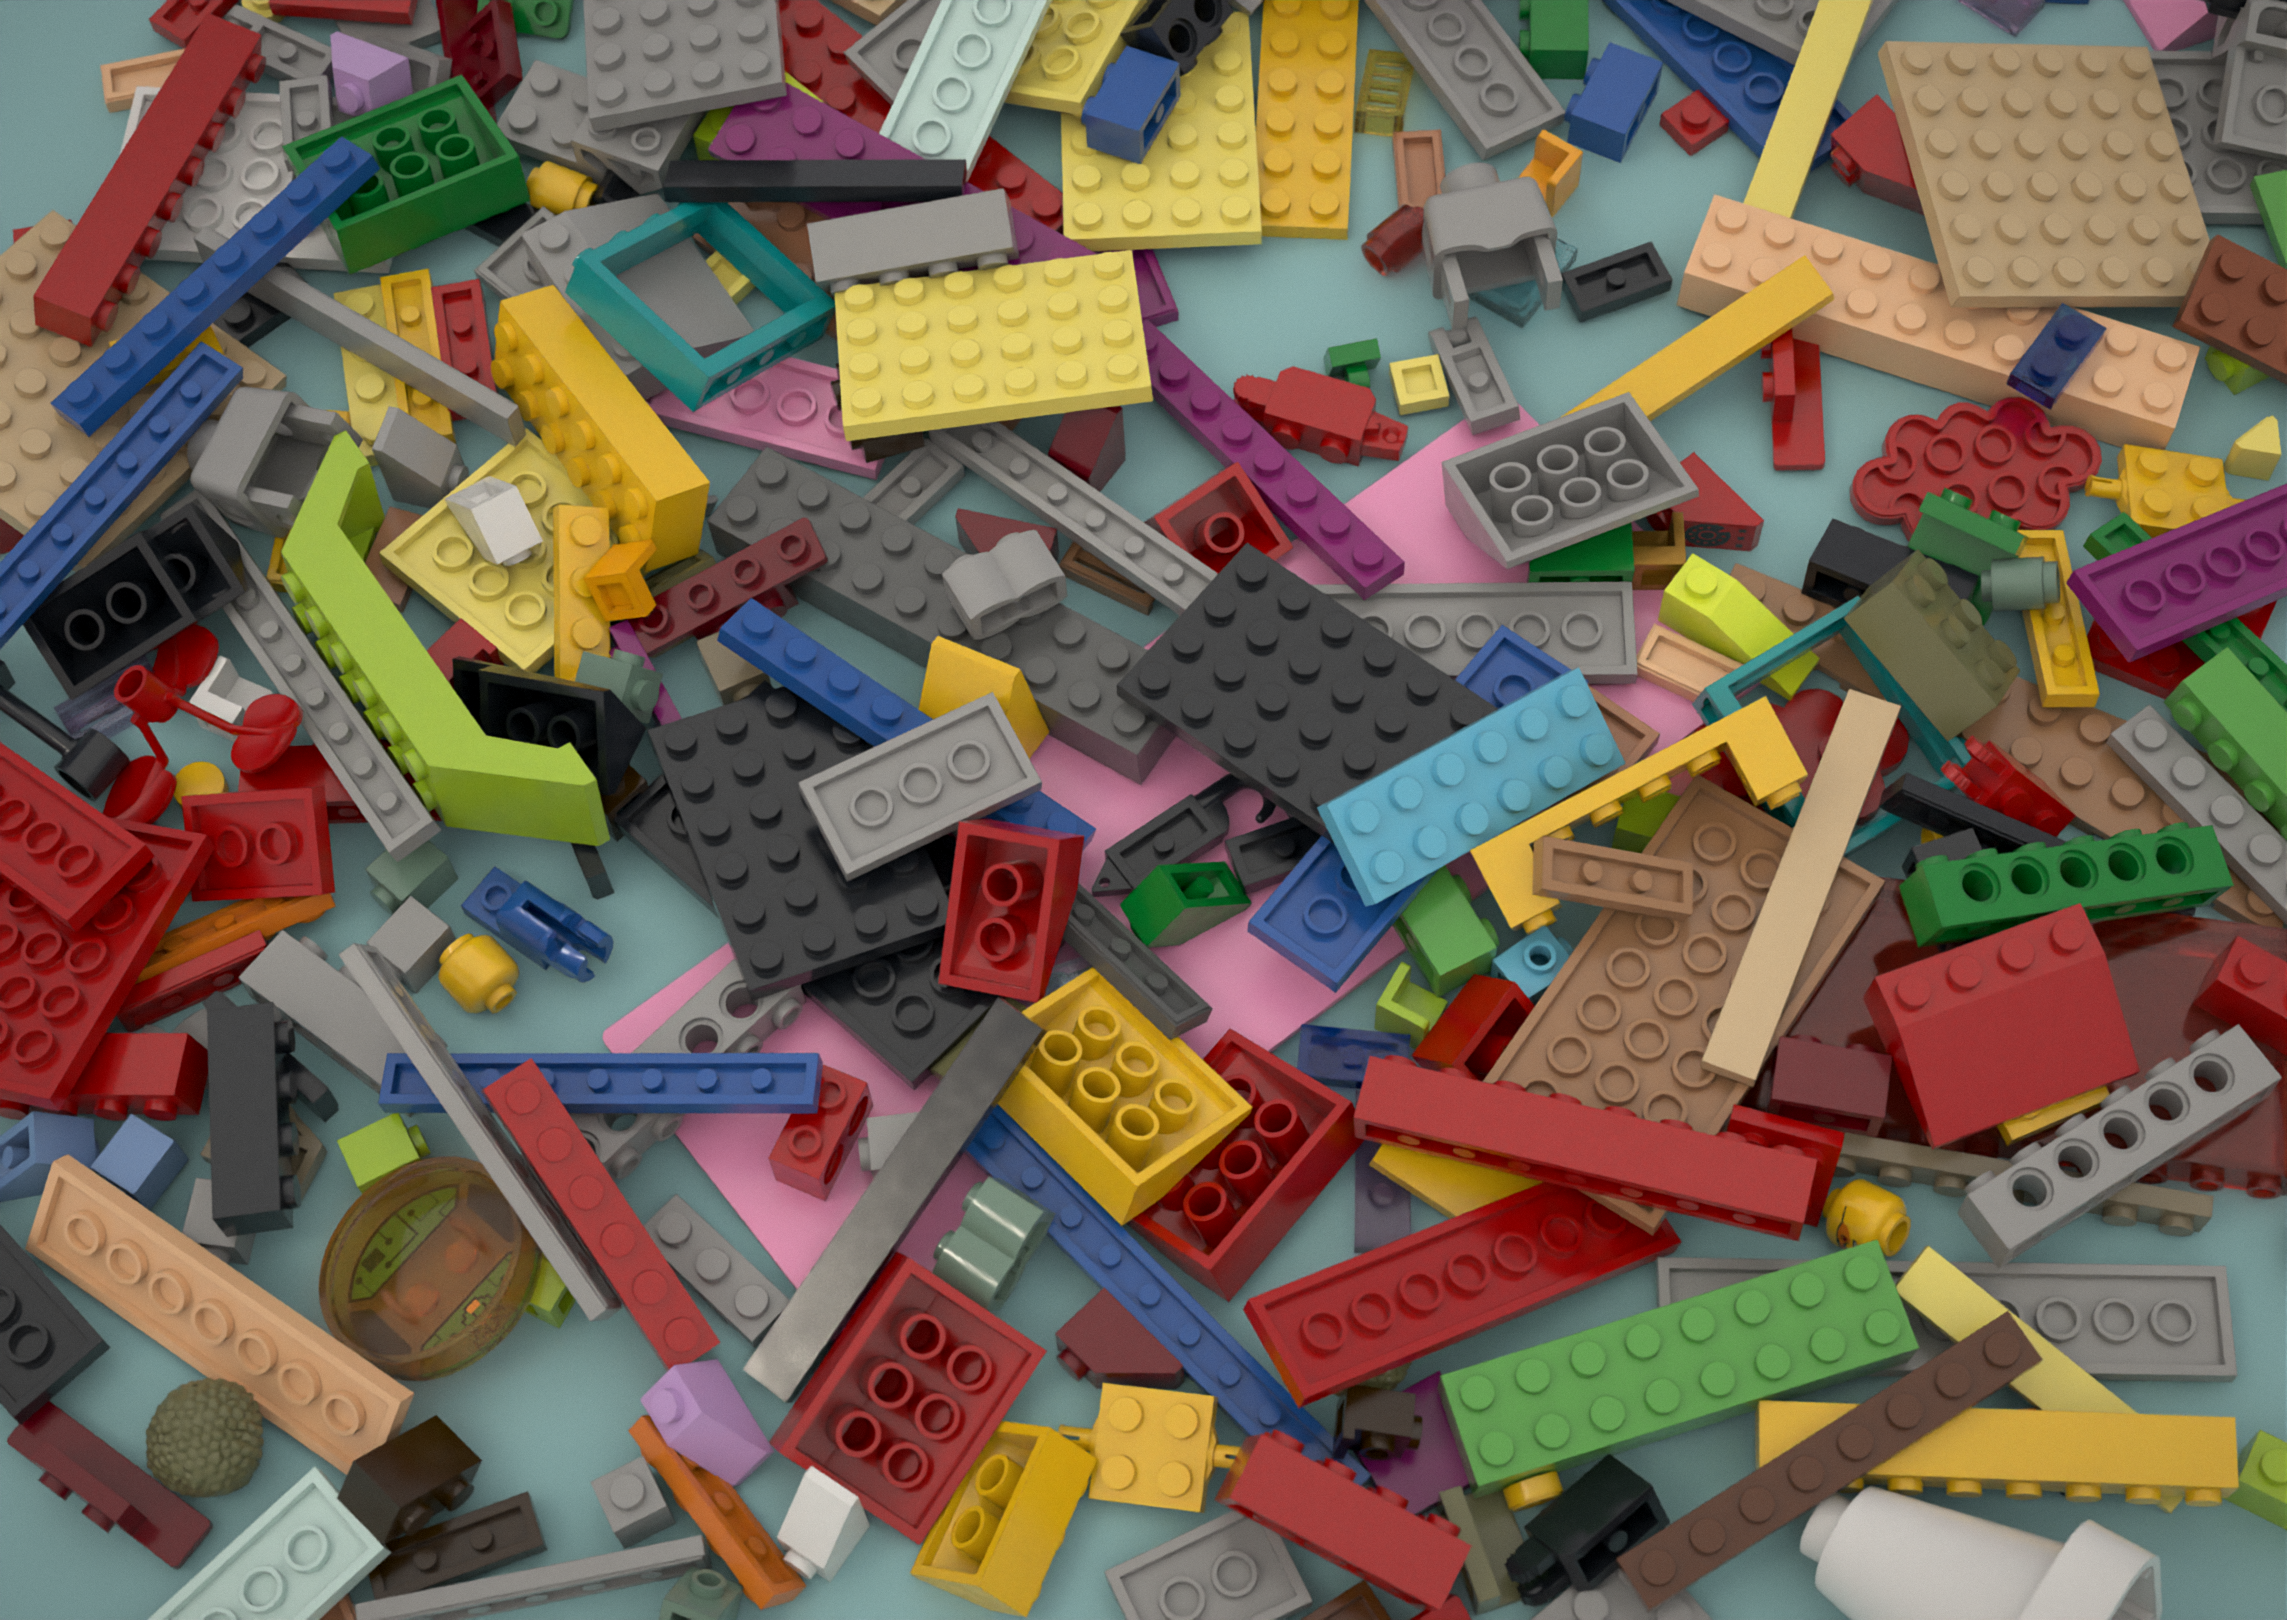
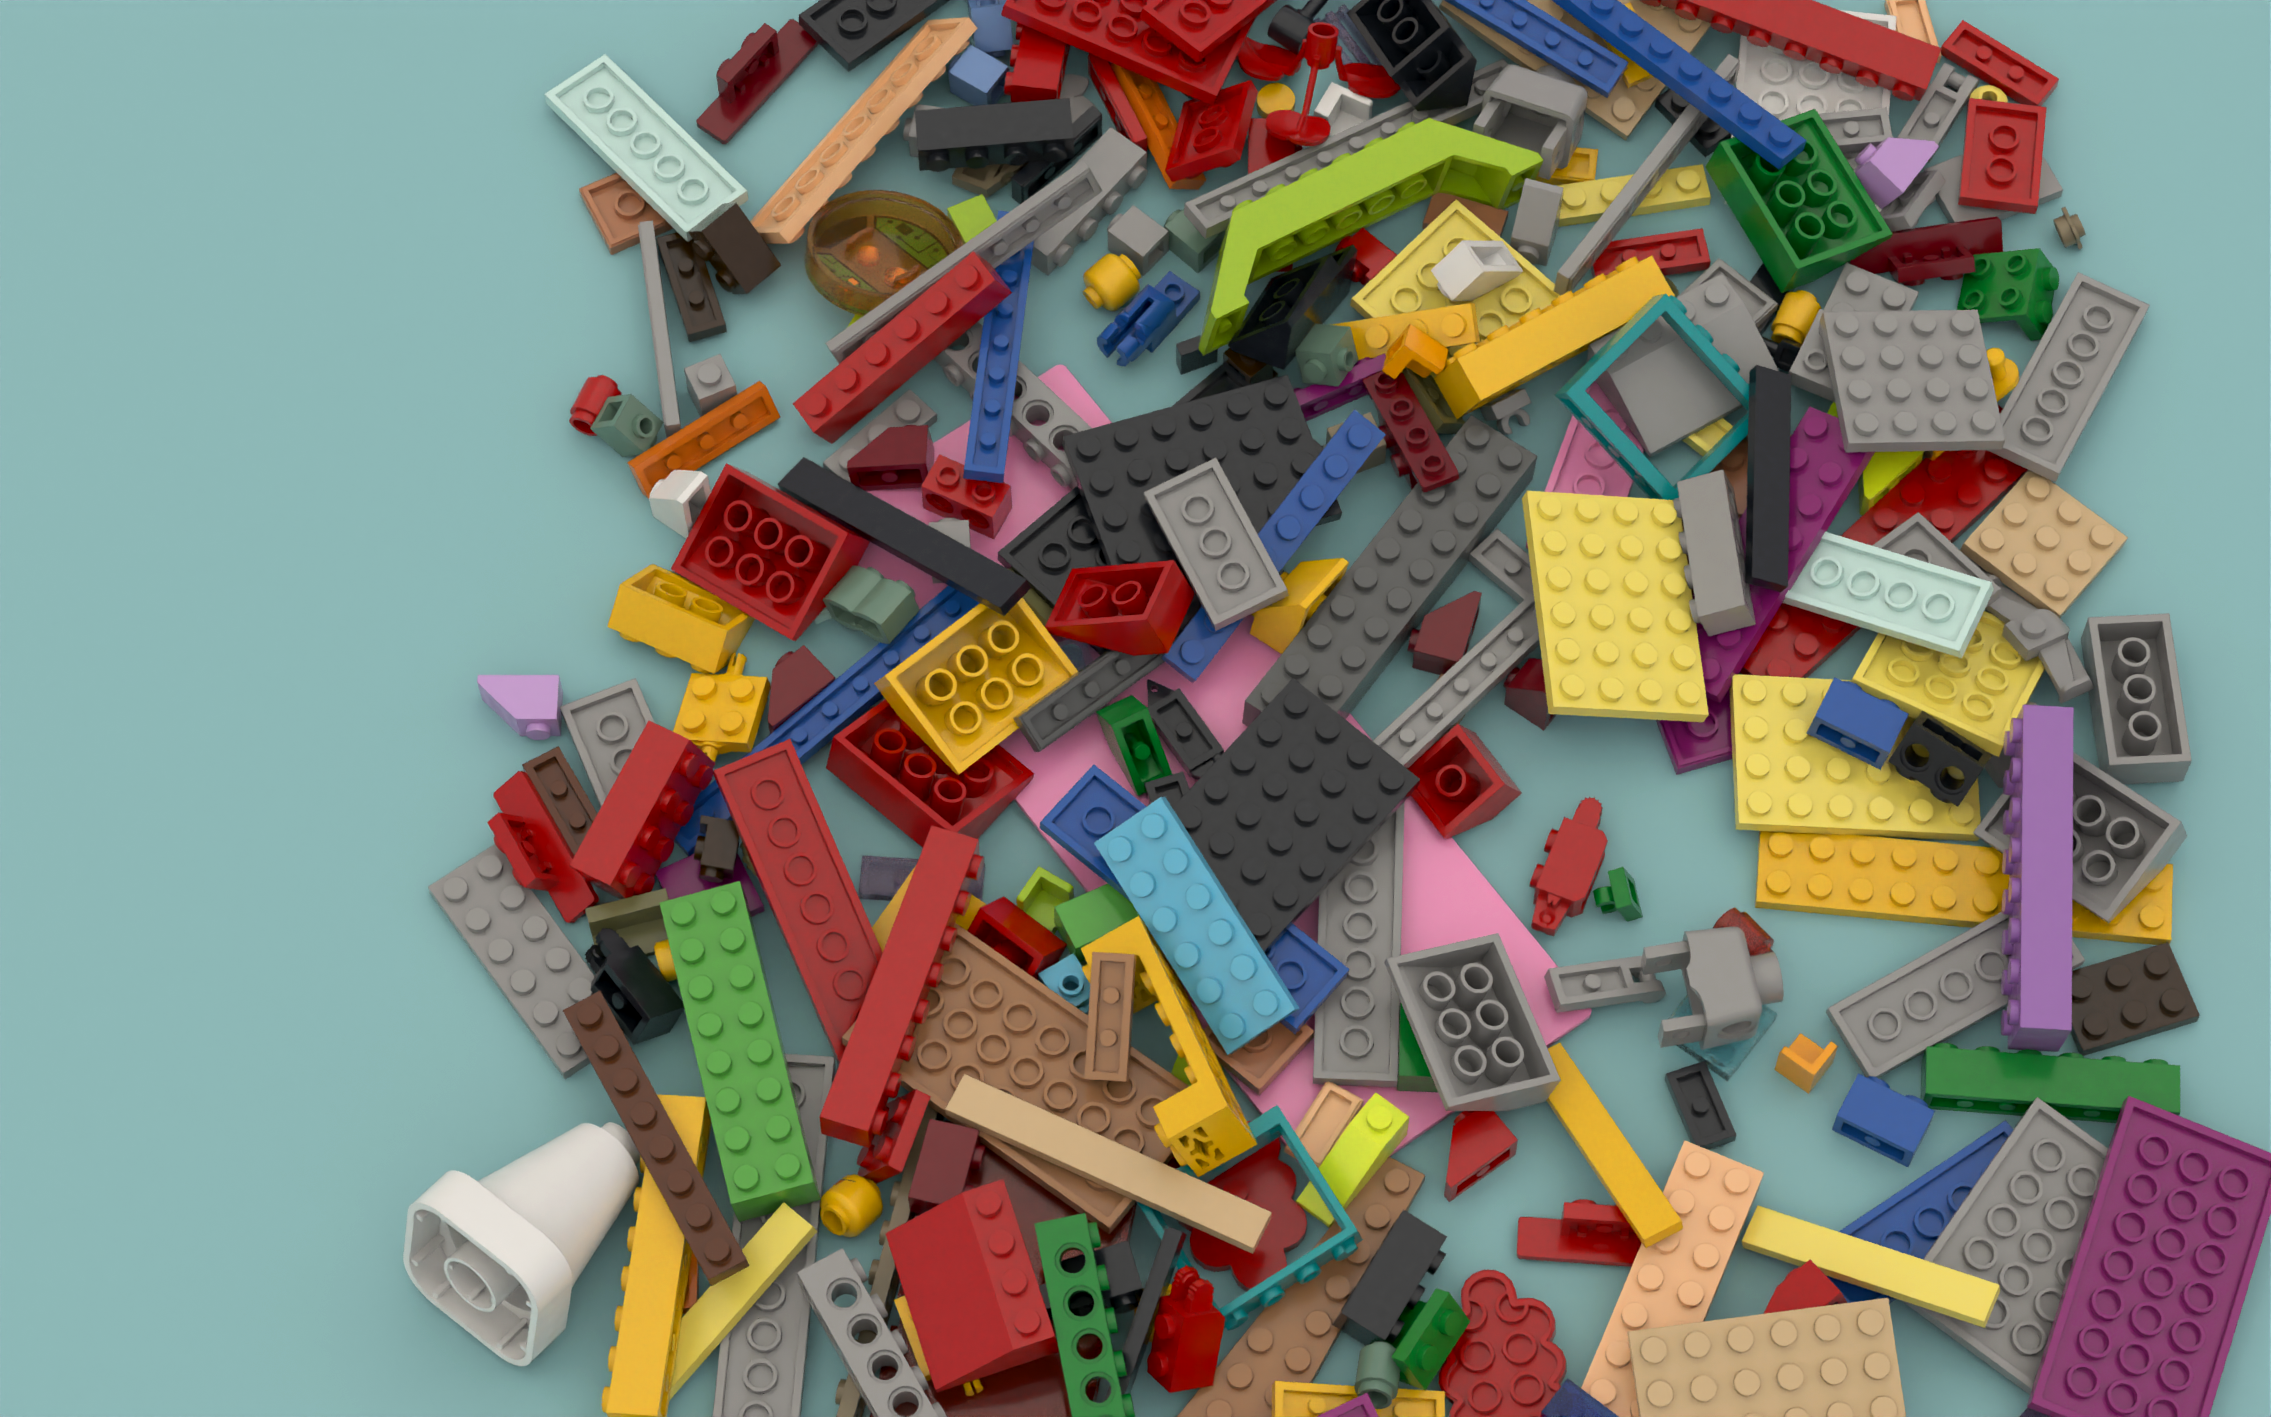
camera: 90 degrees right, 0 degrees up
(205, 1438) = (778, 130): olive hair -> none
(412, 318) = (1648, 219): yellow plate -> none
(707, 1420) = (765, 428): lavender slope -> none
(761, 1226) = (894, 459): none -> dark red slope
(1004, 584) = (1387, 604): light grey brick -> none
(1279, 478) = (1526, 813): magenta plate -> none
(1341, 1054) = (1009, 860): clear blue plate -> none
(1383, 119) = (1890, 924): clear yellow slope -> none
(1417, 165) = (1817, 964): nougat tile -> none
(1418, 384) = (1600, 942): light yellow plate -> none
(1658, 555) = (1424, 1108): pearl gold panel -> none
(1694, 123) = (1867, 1187): red plate -> none
(1933, 644) = (1309, 1281): olive brick -> none

